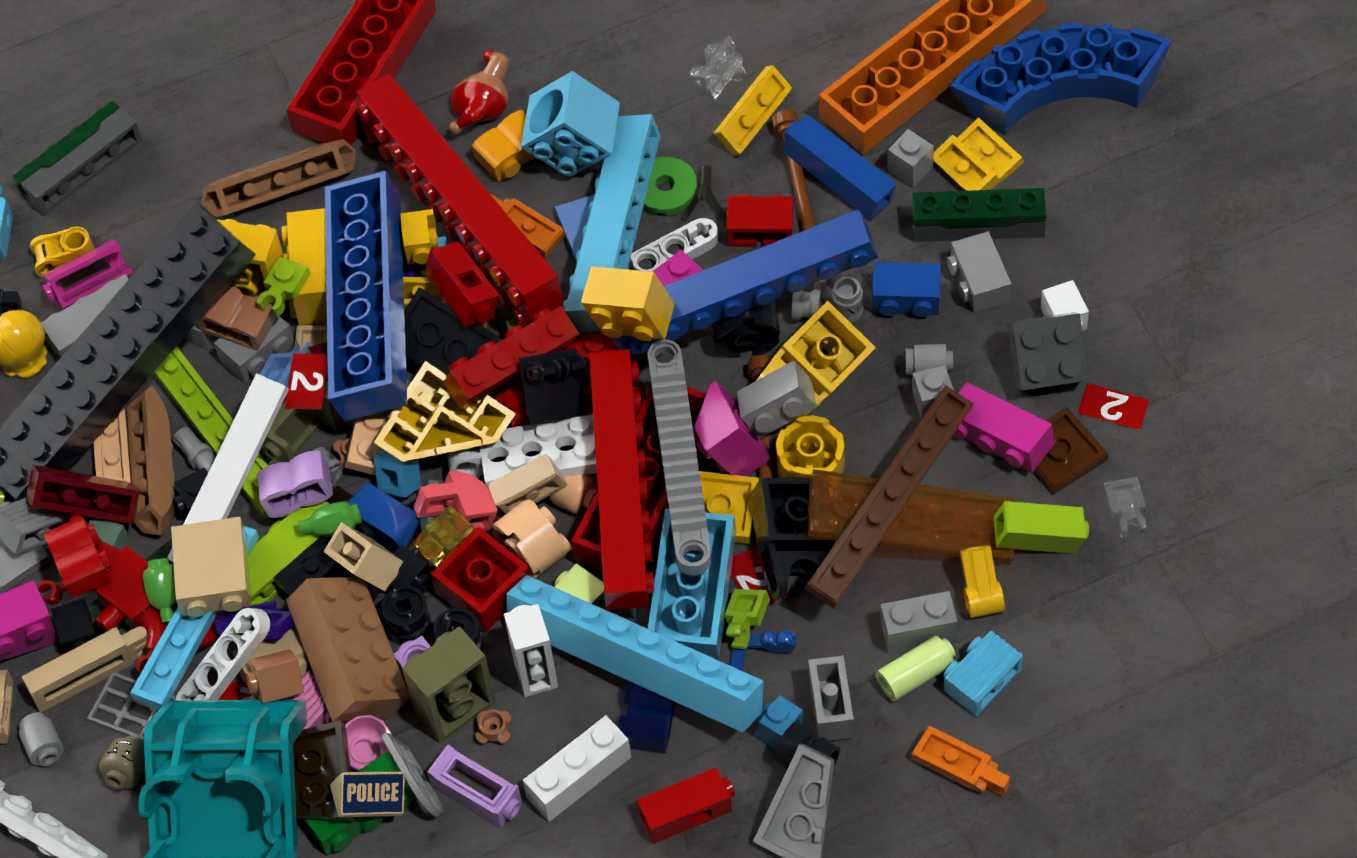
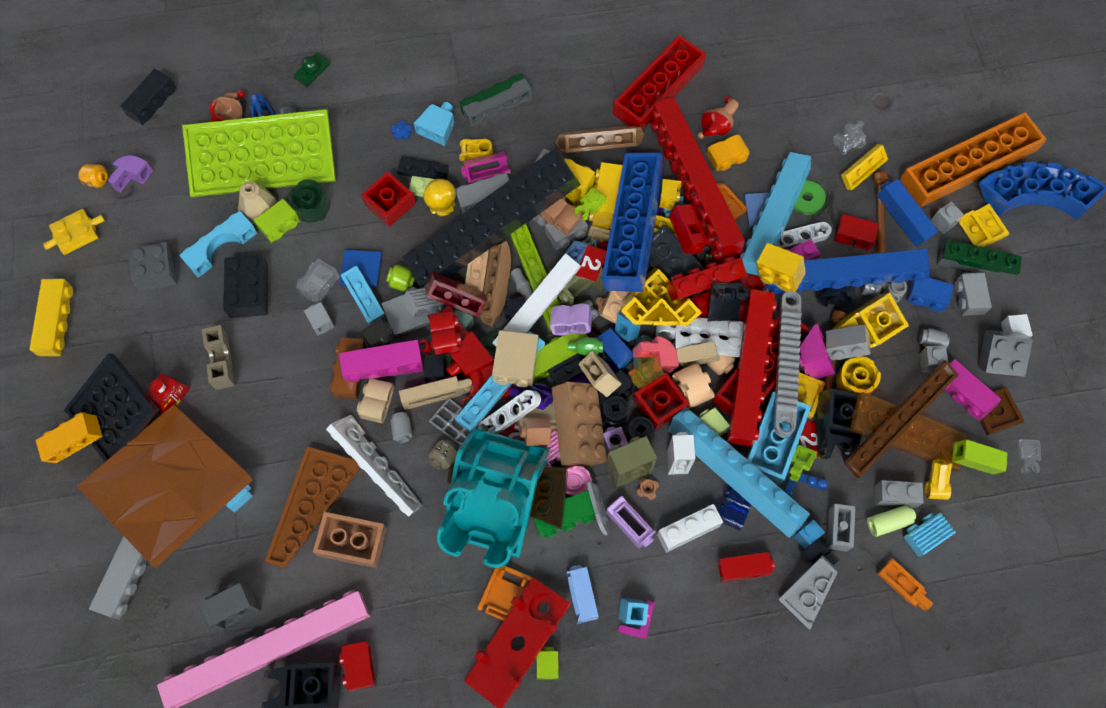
camera: 10 degrees right, 10 degrees up
(160, 587) = (485, 361): bright green plant -> none
(369, 794) = (572, 518): slope -> none
(570, 124) = (765, 150): medium azure brick -> none
(1114, 406) = (1031, 392): red sticker -> none

